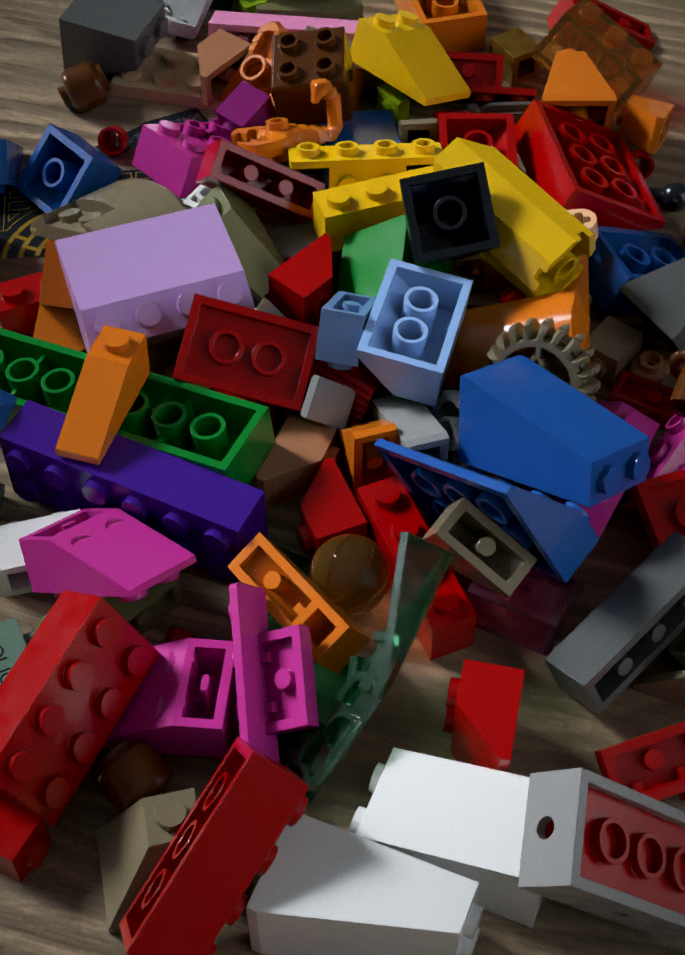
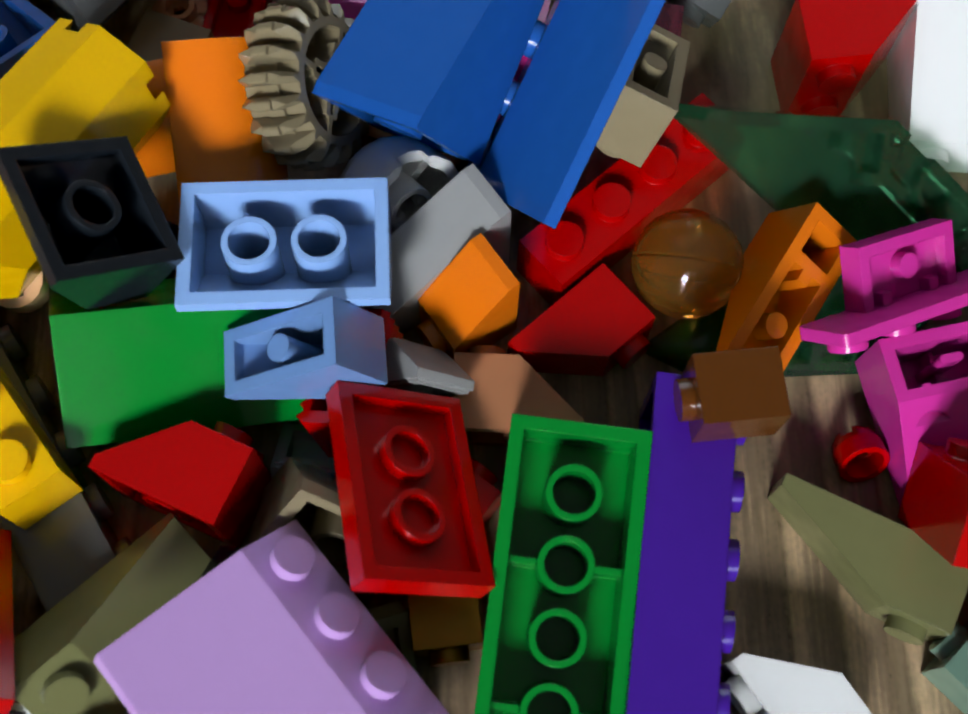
camera: 110 degrees left, 20 degrees up
(101, 556) = (823, 567): dark pink slope -> none
(104, 394) = (595, 664): orange slope -> none
(223, 505) = (732, 394): none -> reddish brown brick

